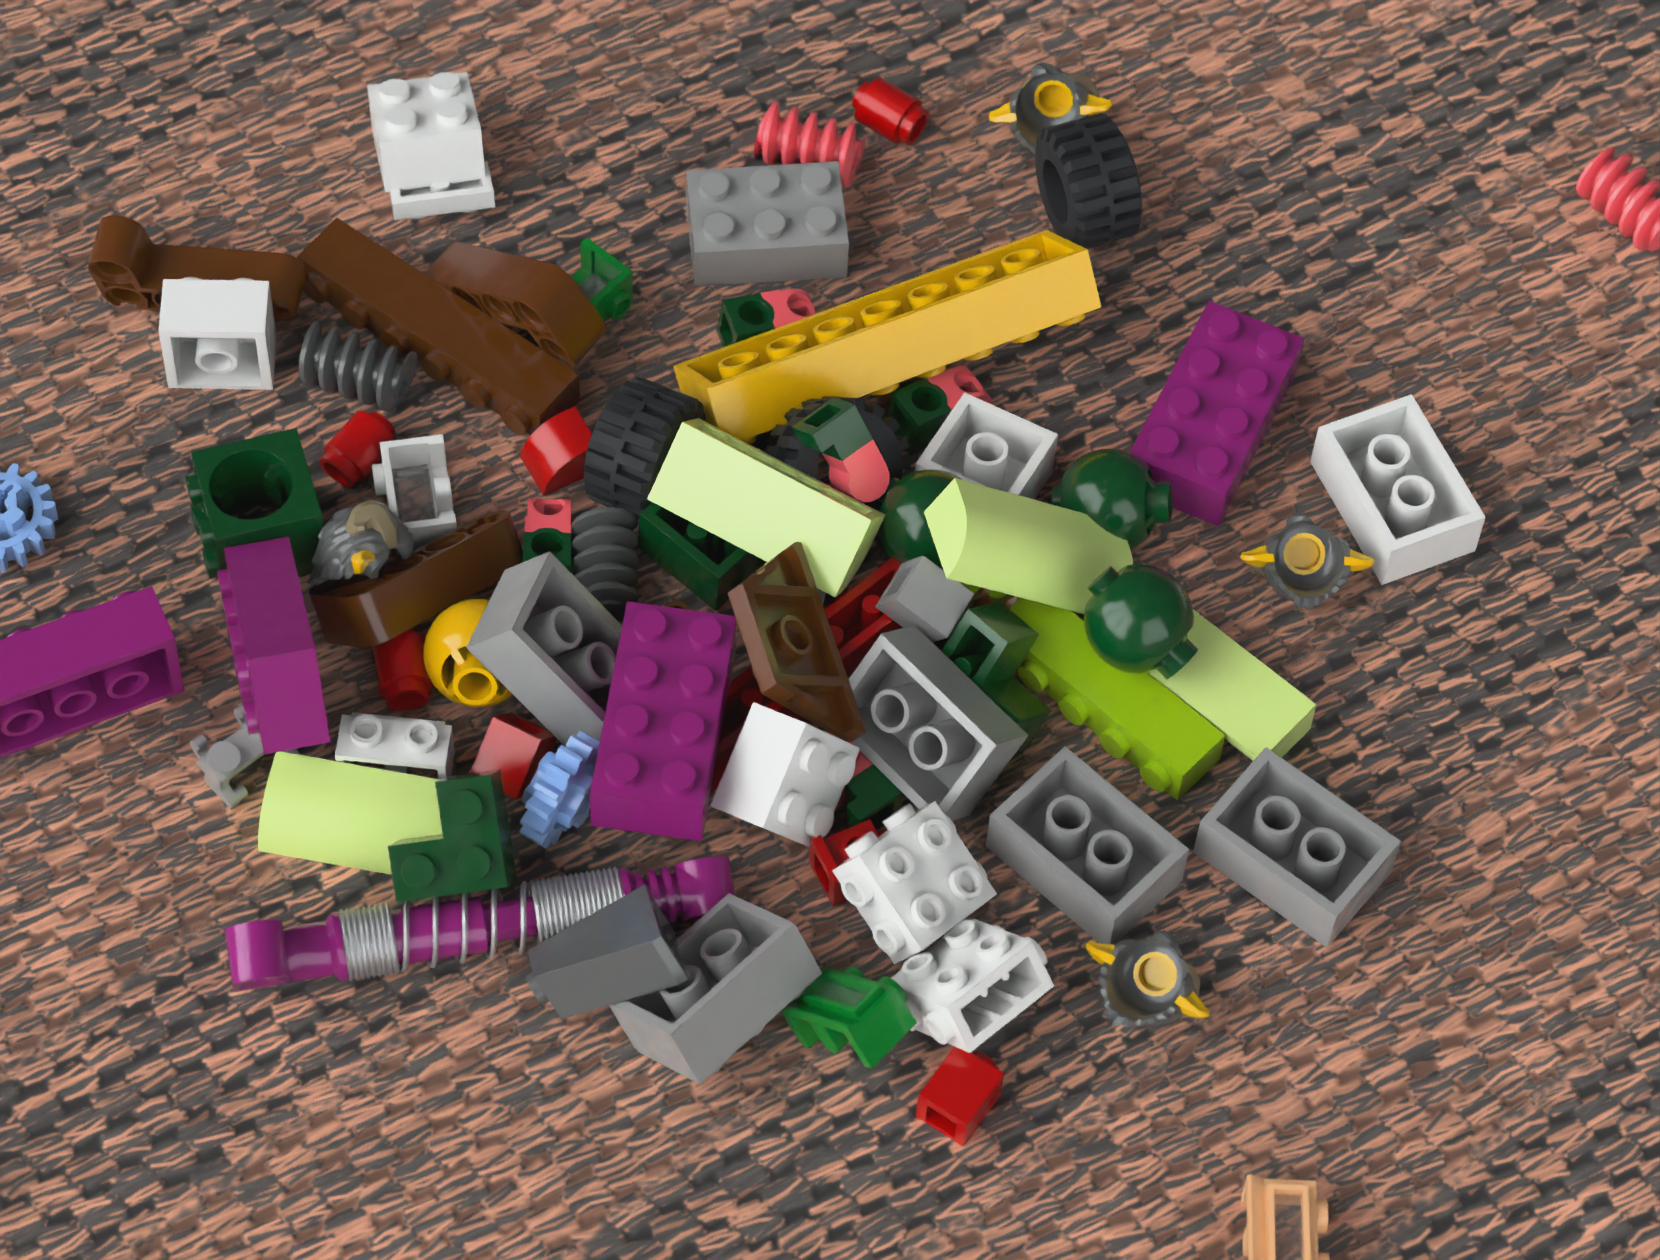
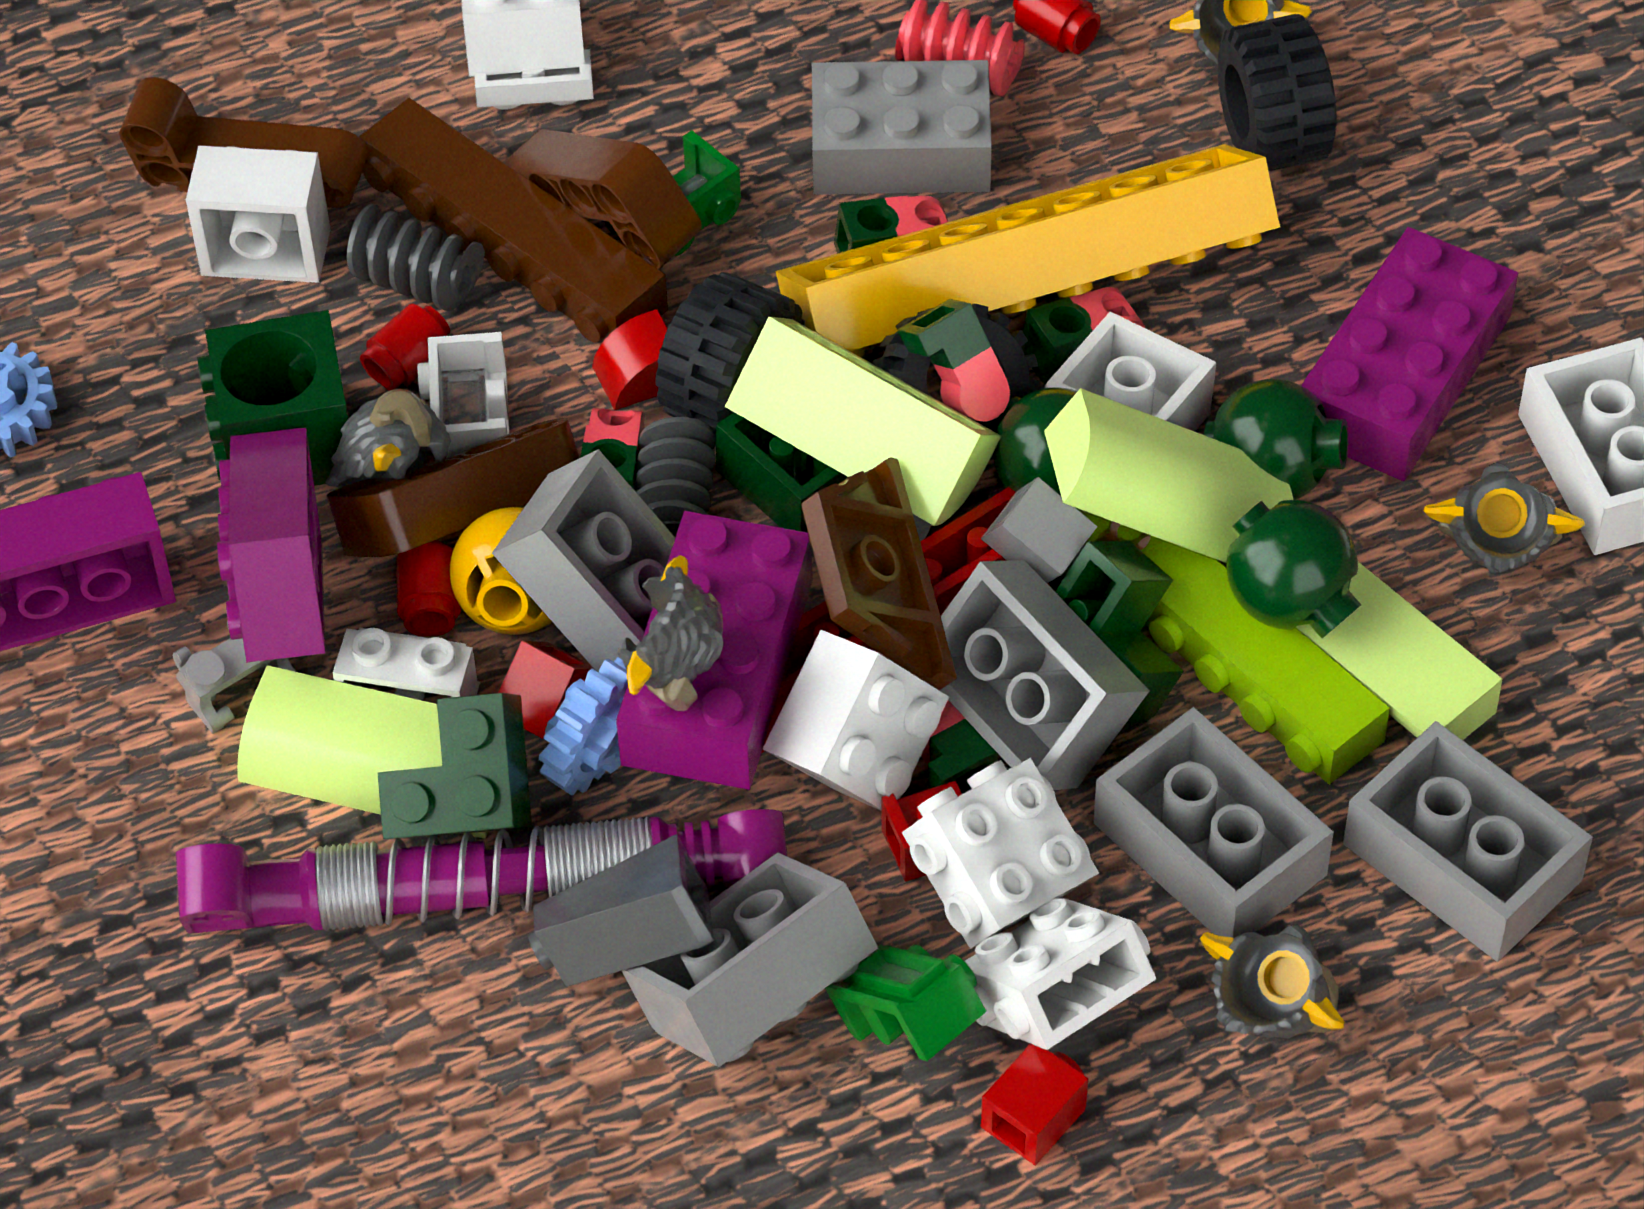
camera: 10 degrees right, 5 degrees down
(640, 723) = (680, 640): none -> dark grey hair

